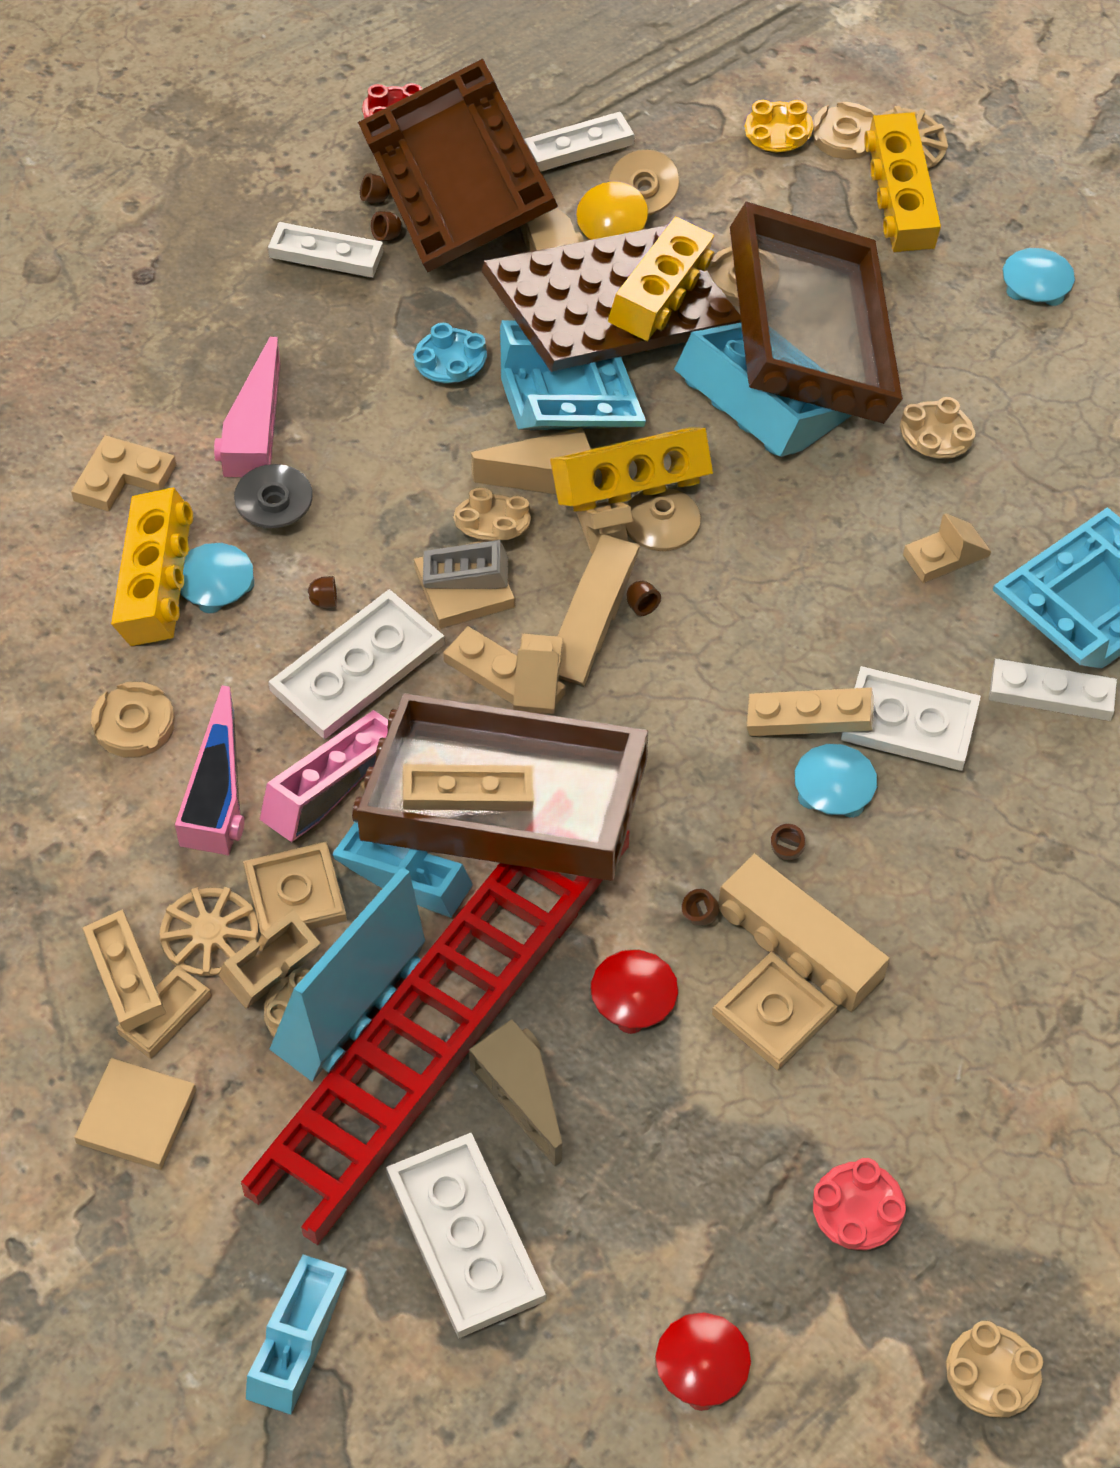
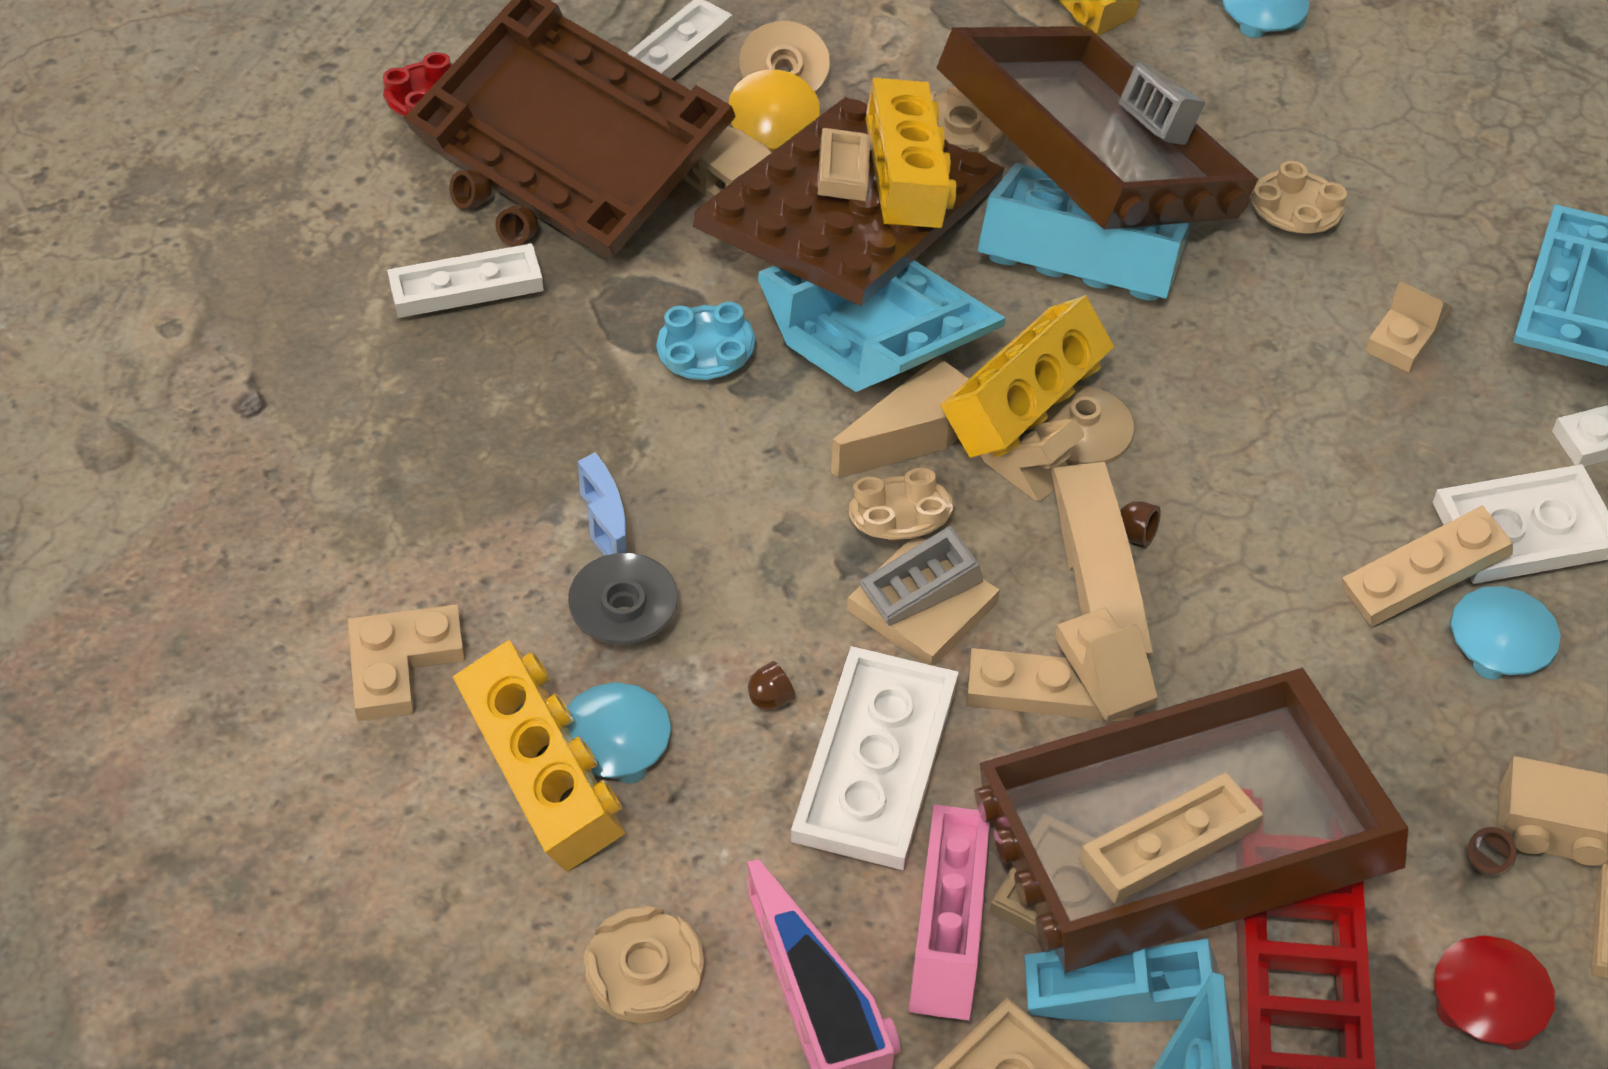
camera: 30 degrees left, 5 degrees down
(251, 420) = (537, 534): bright pink slope -> none
(303, 439) = (604, 506): none -> light blue slope
(611, 269) = (843, 164): none -> tan tile
(790, 835) = (1517, 717): reddish brown hinge -> none
(874, 319) = (1182, 114): none -> light grey slope

